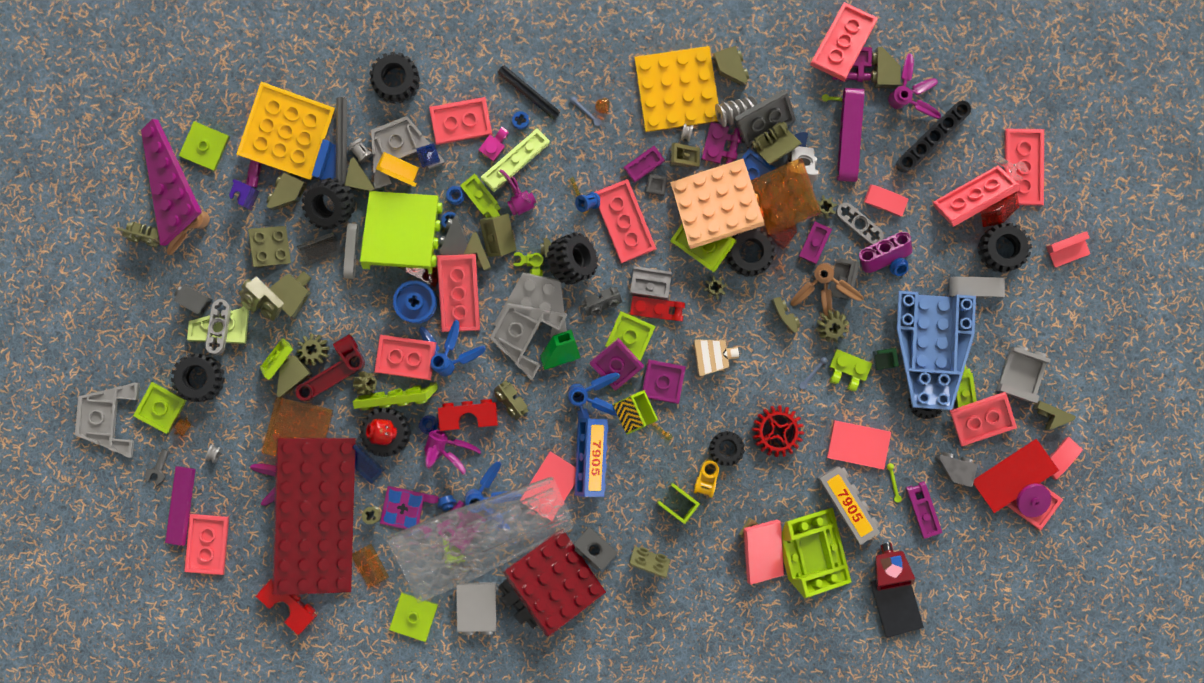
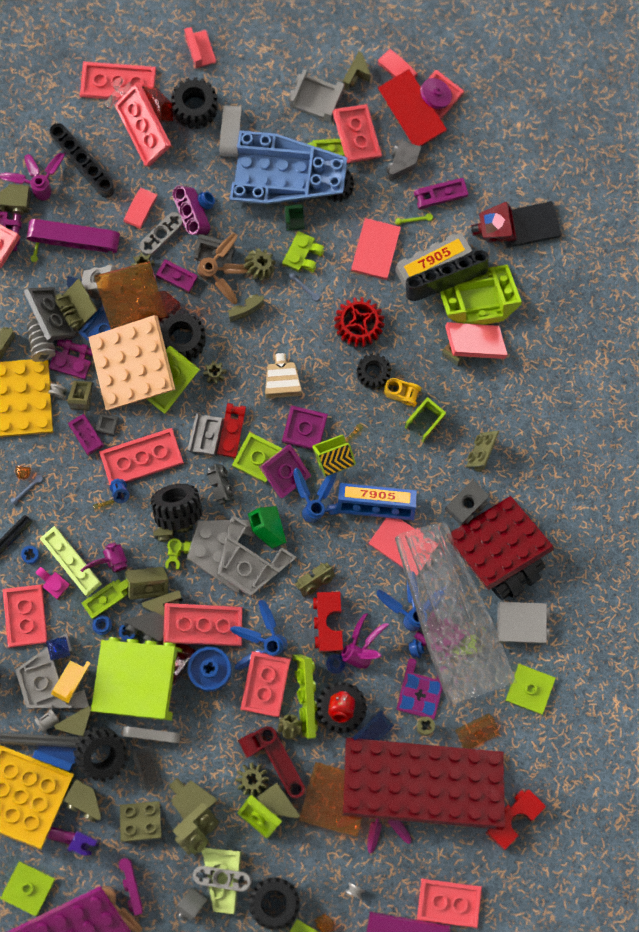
camera: 90 degrees left, 10 degrees down
(210, 241) = (130, 885): none -> magenta plate
(837, 531) = (447, 275): none -> black beam

